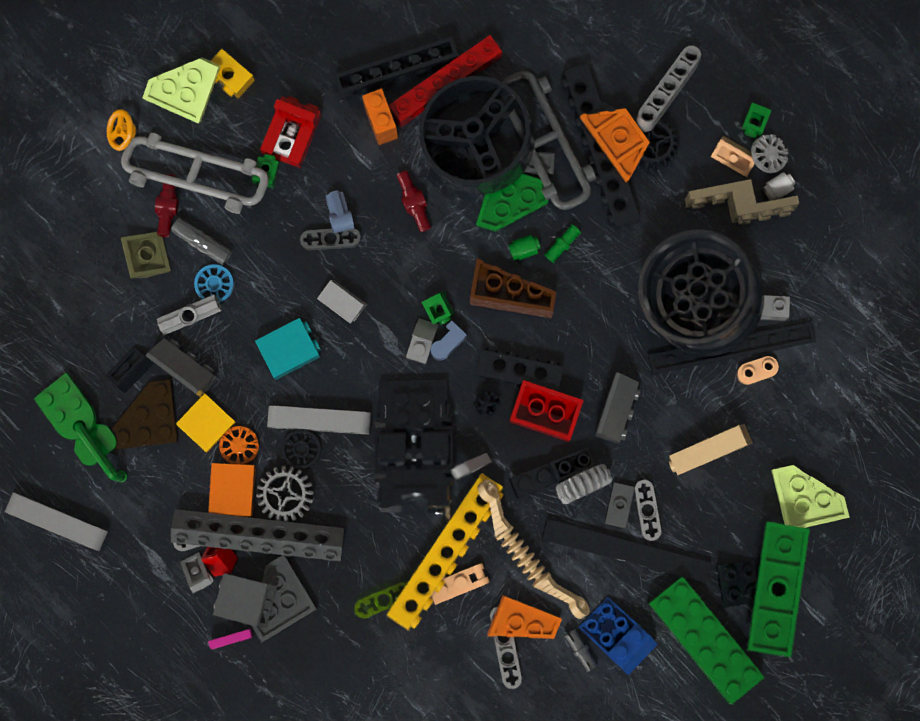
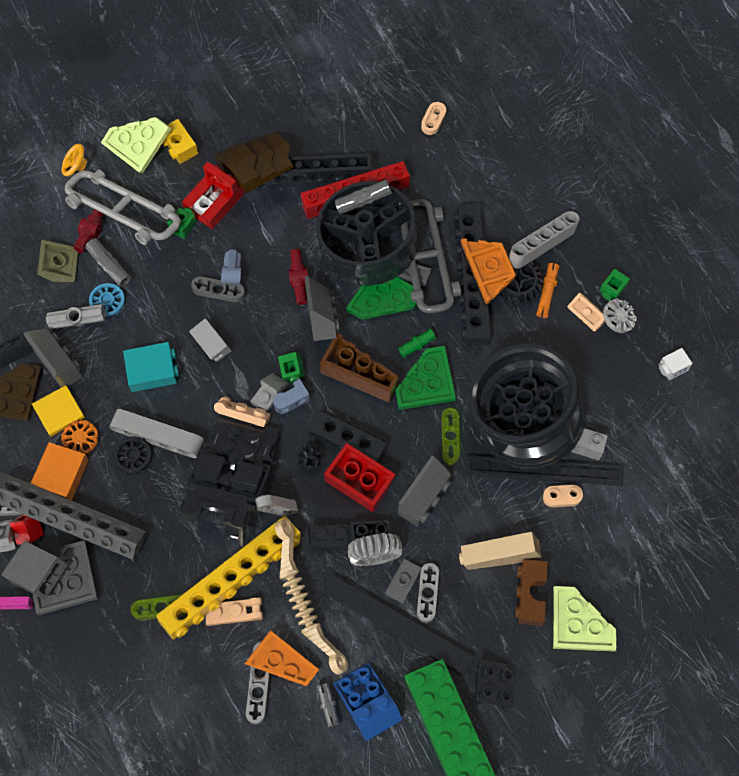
camera: 15 degrees right, 15 degrees down
(289, 477) = (110, 473): light grey gear -> none
(327, 78) = (256, 160): none -> dark brown slope
(380, 116) = (290, 200): orange brick -> none
(401, 372) = (242, 412): none -> light nougat plate
(453, 239) = (321, 310): none -> dark grey slope
(463, 99) = (364, 196): none -> dark grey axle
(524, 247) = (382, 337): green brick -> none
(585, 283) = (427, 381): none -> green plate
(627, 320) = (455, 422): none -> clear neon green beam
(686, 143) = (547, 291): none -> orange pin
(741, 202) = (584, 346): dark tan bracket -> none
(752, 500) = (530, 610): none -> reddish brown arch
(779, 186) = (621, 344): white brick -> none
(780, 563) = (538, 675): green plate -> none
(840, 194) = (675, 364): none -> white brick

